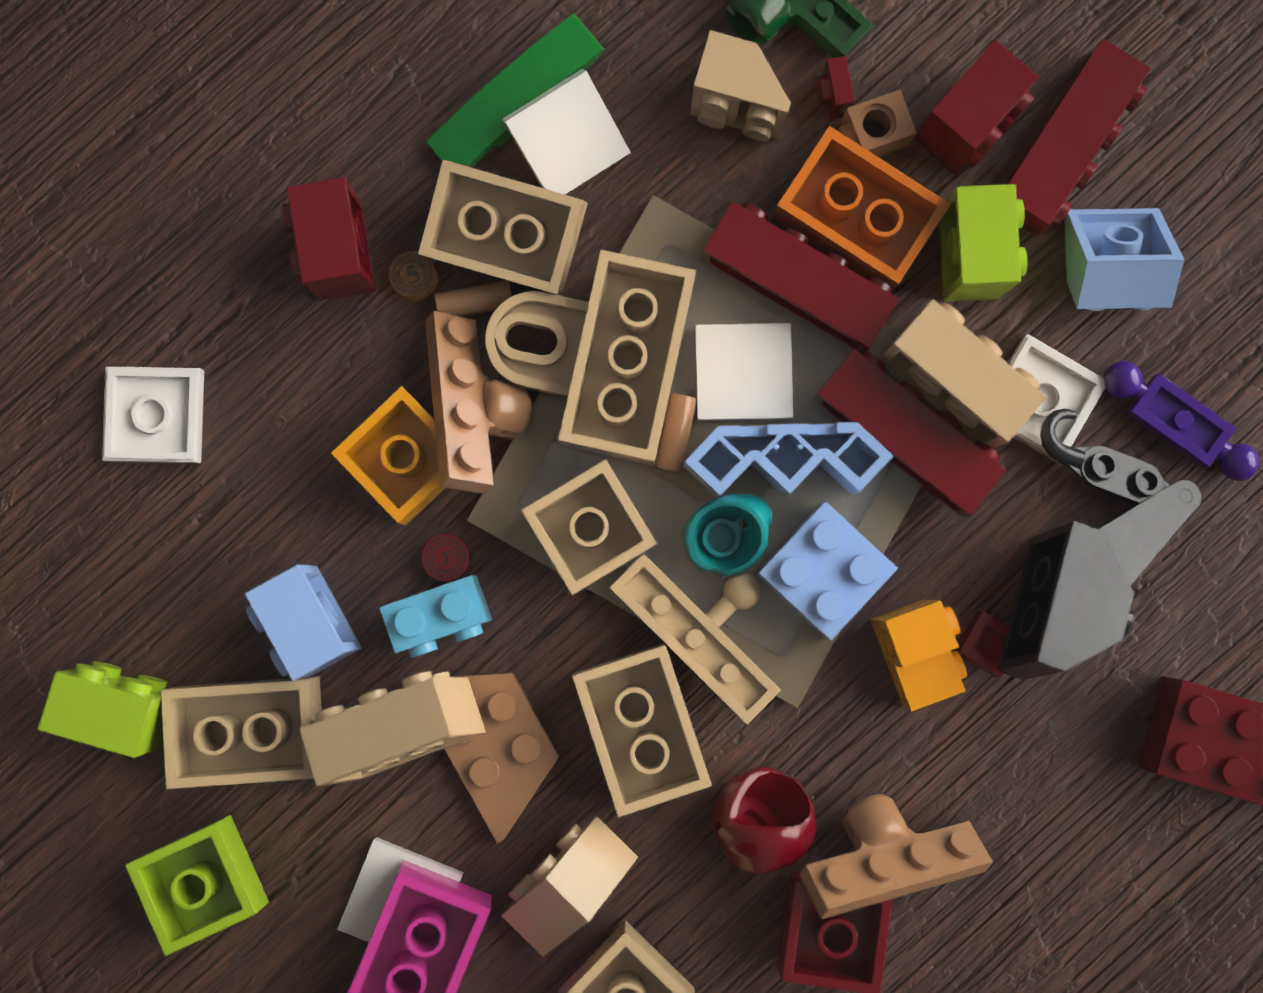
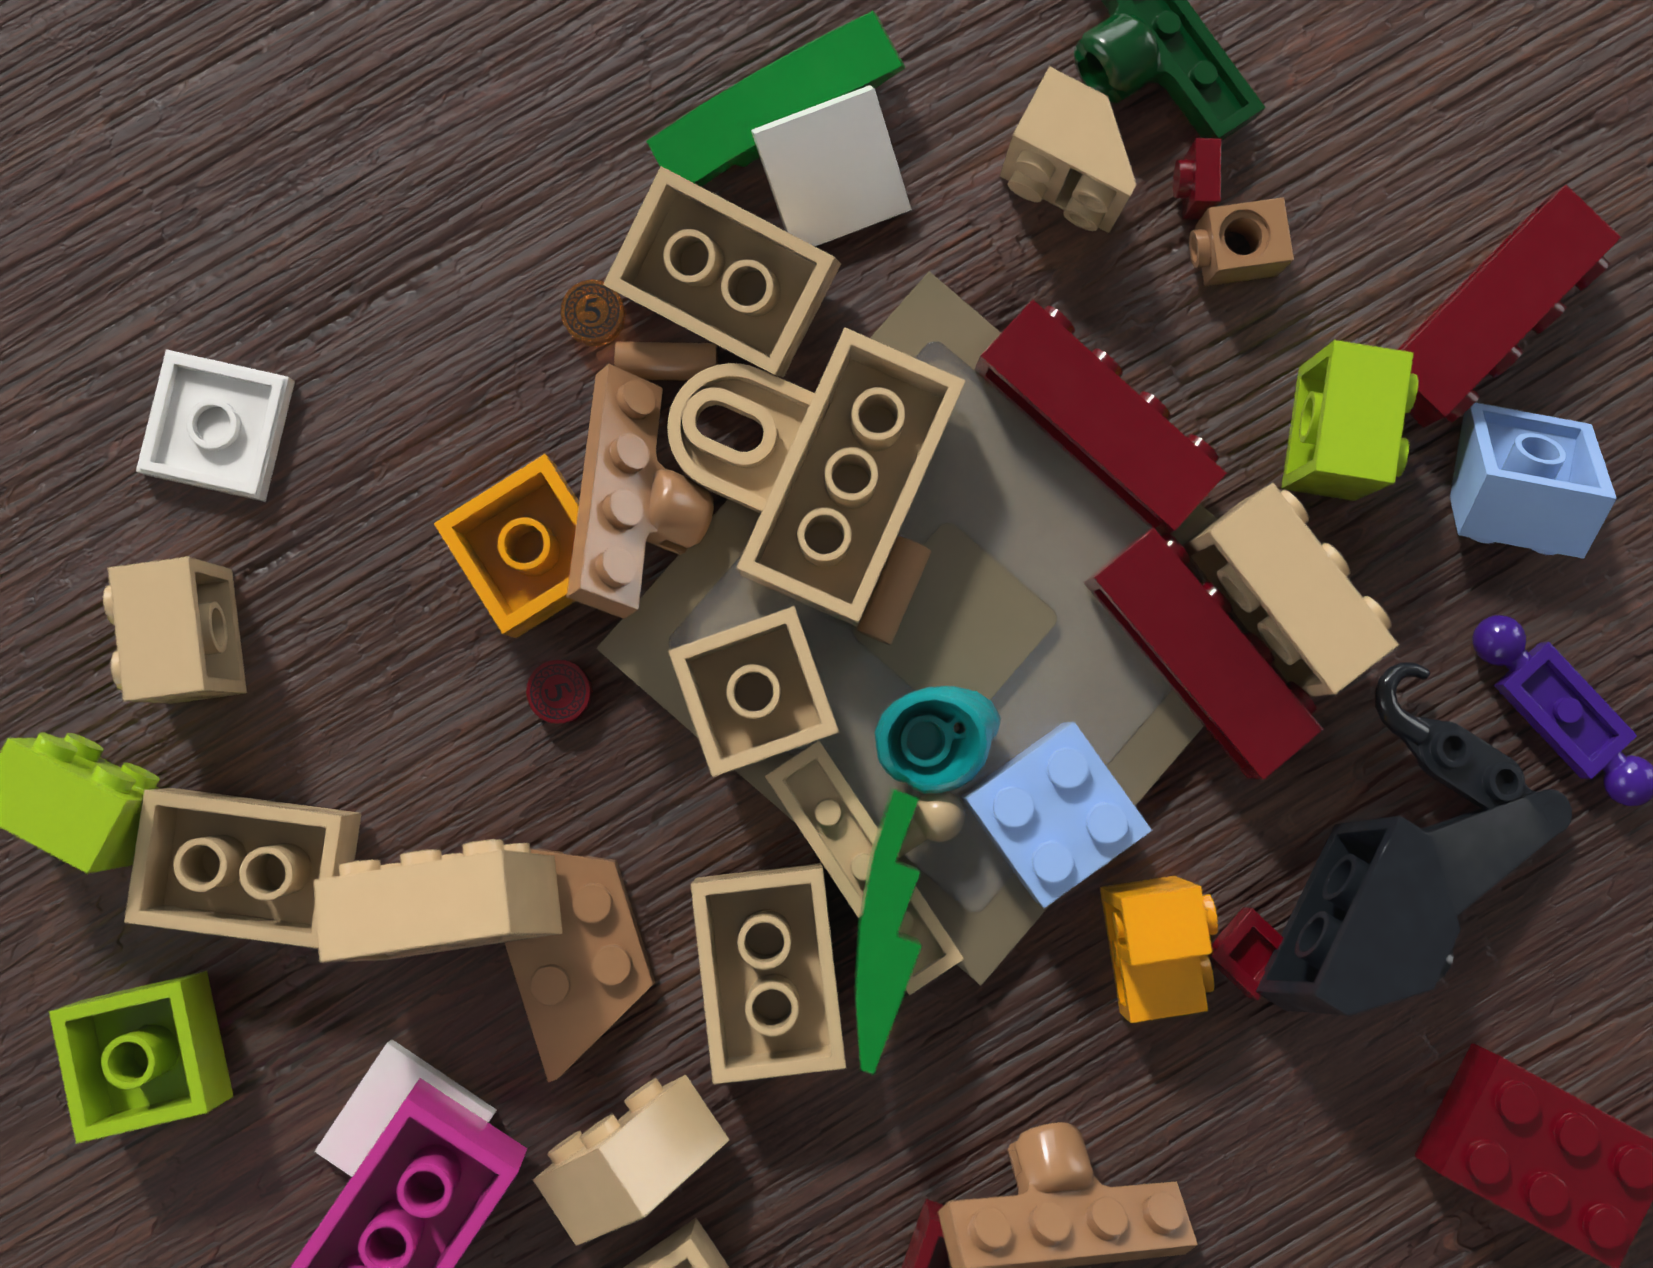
camera: 10 degrees right, 0 degrees up
(157, 570) = (174, 631): none -> tan brick
(301, 622) = (349, 738): light blue brick -> none
(329, 239) = (491, 241): dark red brick -> none
(436, 613) = (529, 763): medium azure brick -> none
(722, 698) = (883, 952): none -> green slope
(744, 372) = (1001, 528): white tile -> none
(763, 820) = (905, 1127): dark red piece -> none
(787, 455) = (1037, 650): light blue brick -> none
(860, 208) = (1199, 344): orange brick -> none
(978, 109) = (1381, 244): dark red brick -> none
(1064, 385) = (1421, 628): white tile -> none

